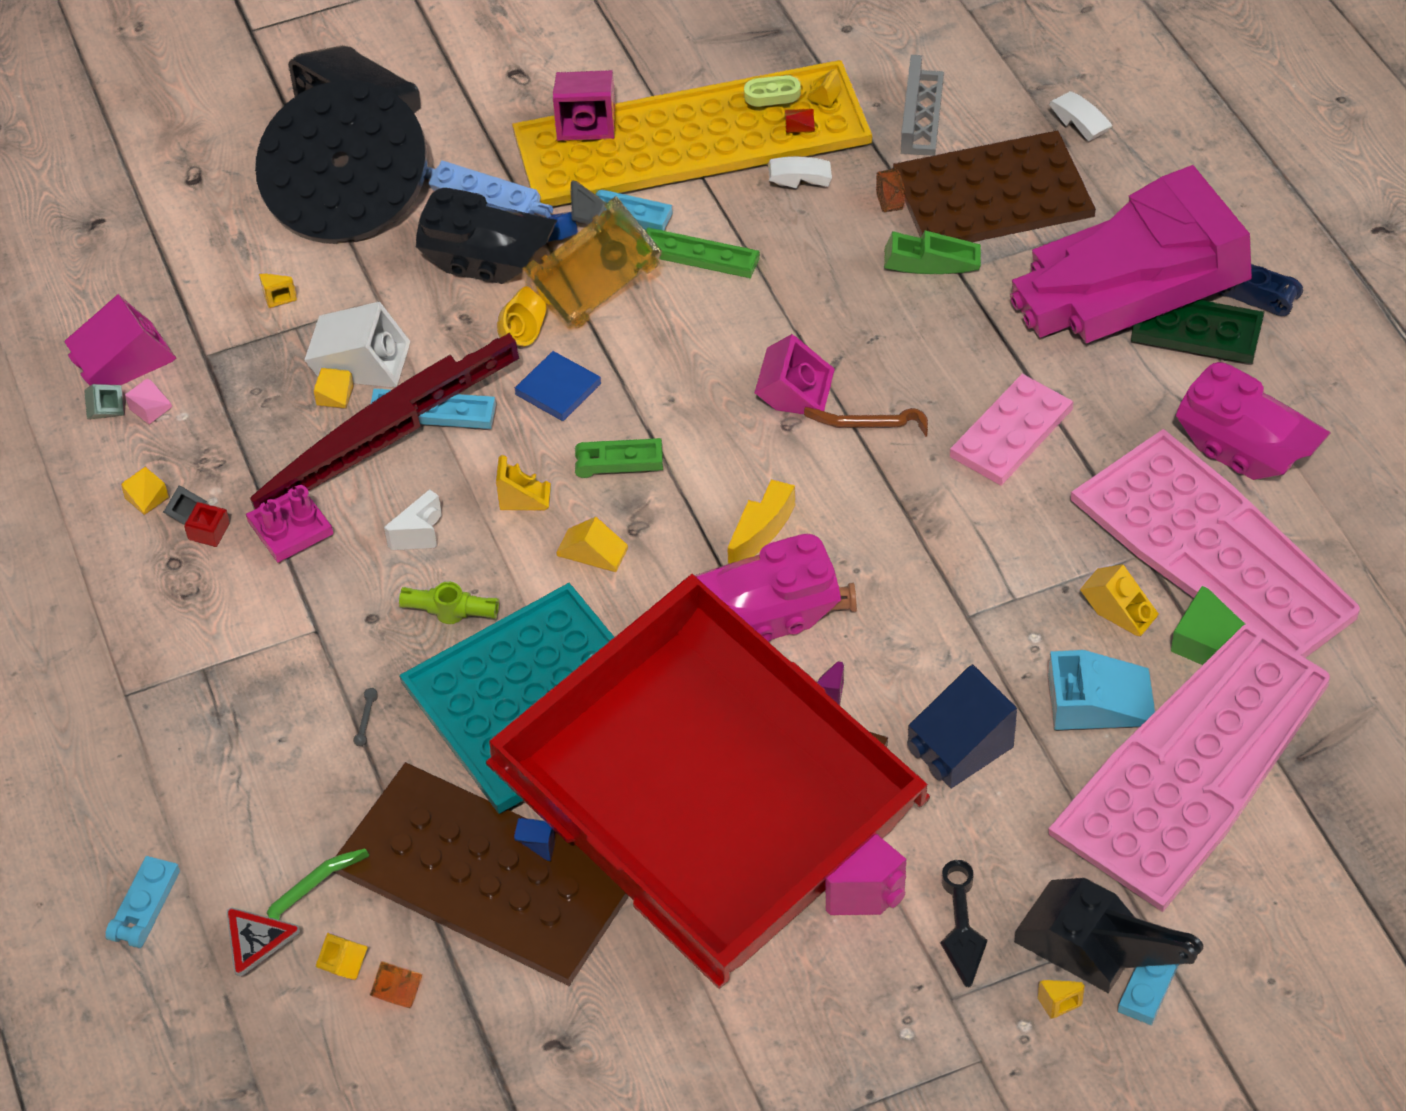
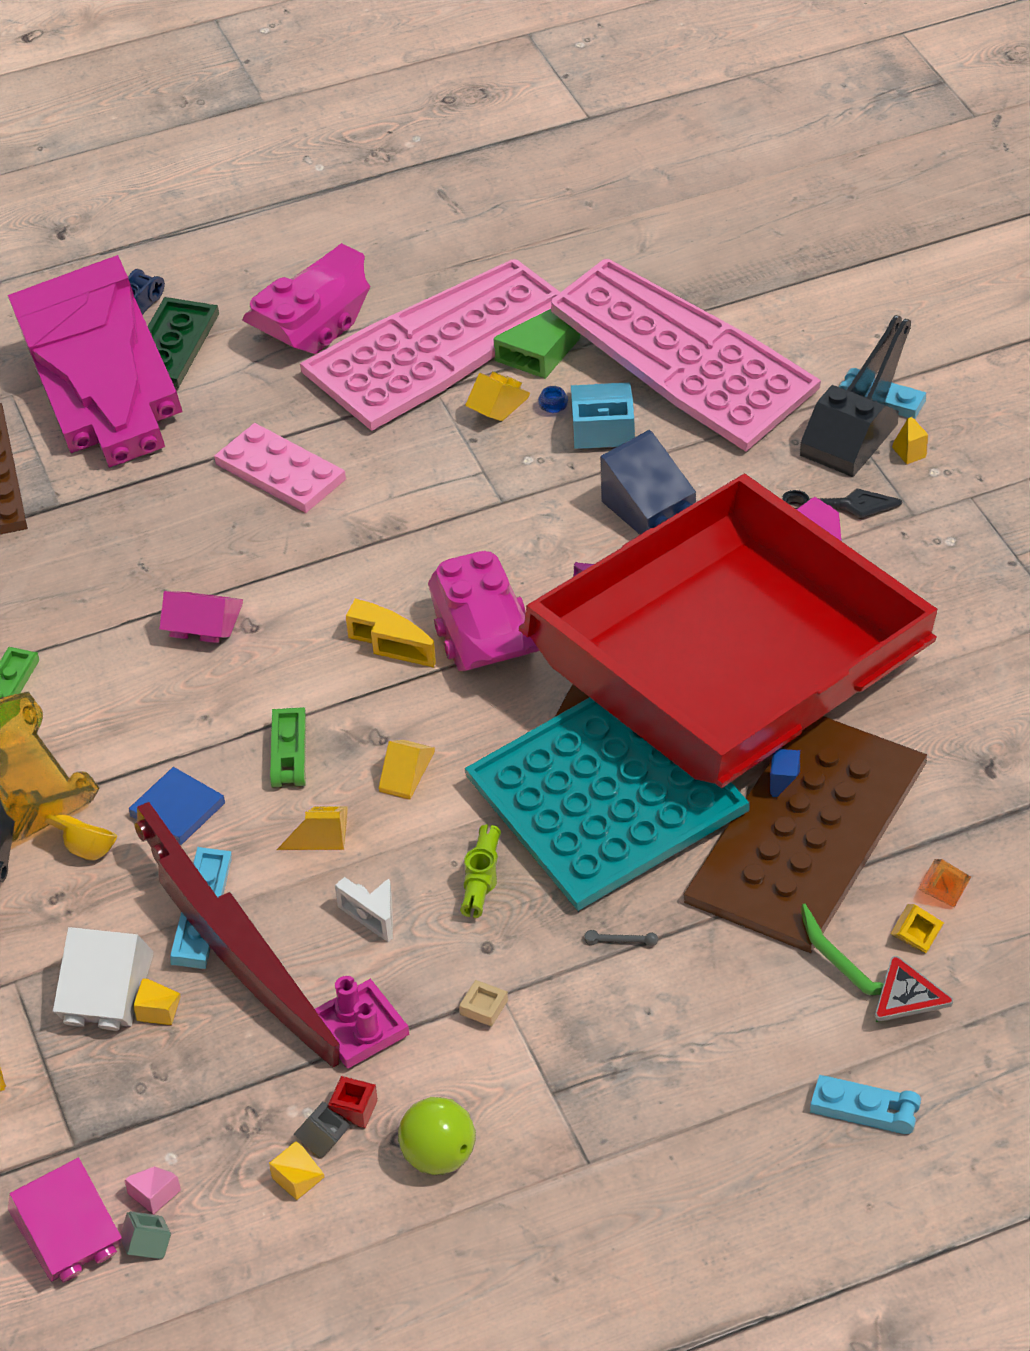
camera: 90 degrees left, 5 degrees down
(148, 573) = (436, 1135): none -> lime piece
(298, 610) = (483, 1003): none -> tan plate
(850, 421) = (258, 557): dark orange piece -> none
(931, 254) = (41, 517): bright green slope -> none
(1126, 646) = (553, 399): none -> clear blue plate

